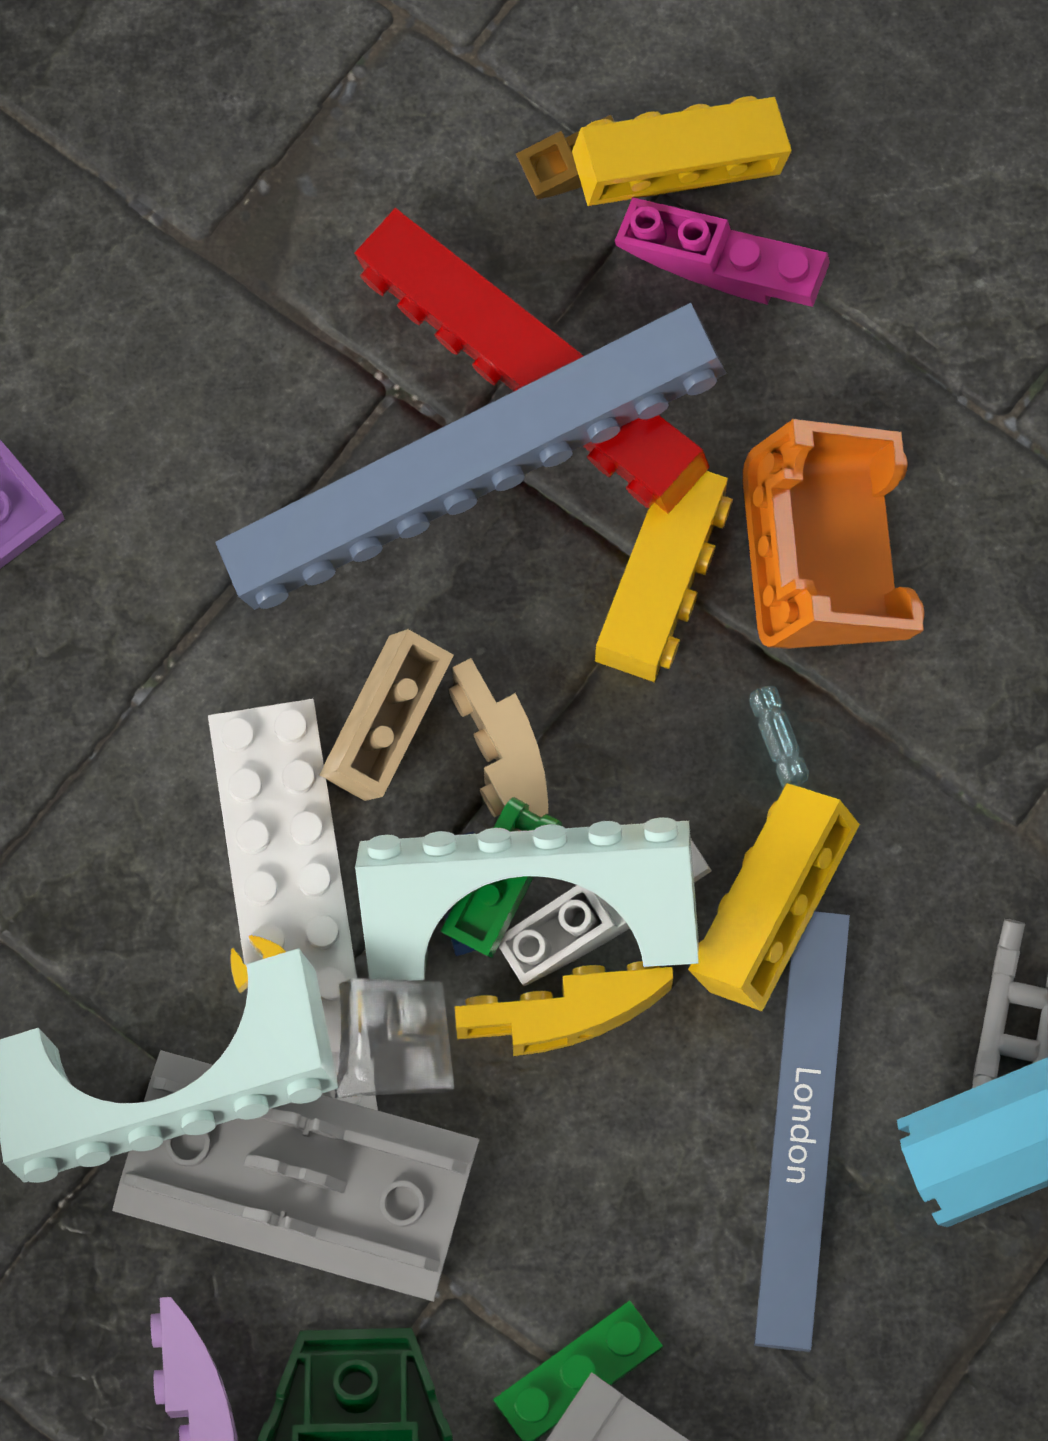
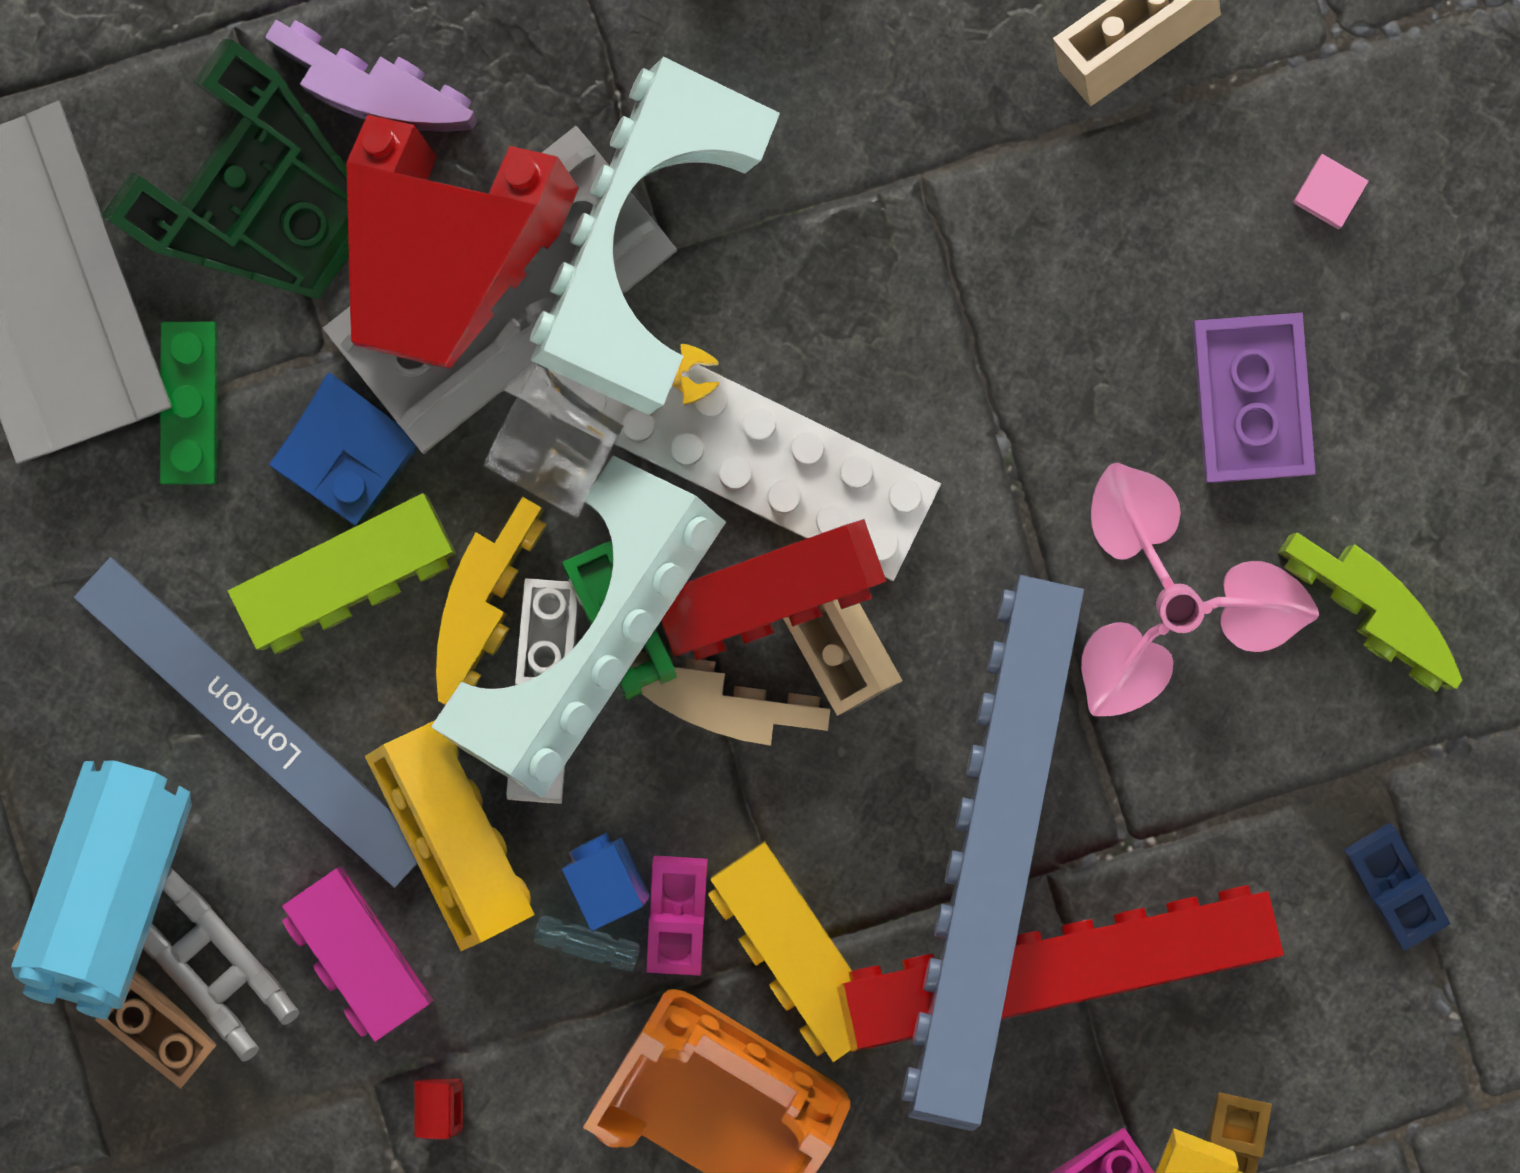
camera: 125 degrees right, 15 degrees up
(68, 319) = (1394, 617): none -> lime slope
(140, 412) = (1129, 670): none -> bright pink plant
(282, 176) = (1396, 886): none -> dark blue slope
(309, 1230) = (437, 254): none -> red wedge
(384, 763) = (773, 587): none -> red brick
(525, 1211) = (344, 451): none -> blue plate
(626, 1136) = (342, 573): none -> lime brick
(704, 683) = (677, 915): none -> dark pink slope
(717, 726) = (605, 880): none -> blue brick
(926, 906) = (355, 955): none -> dark pink brick
(997, 758) = (438, 1108): none -> red brick

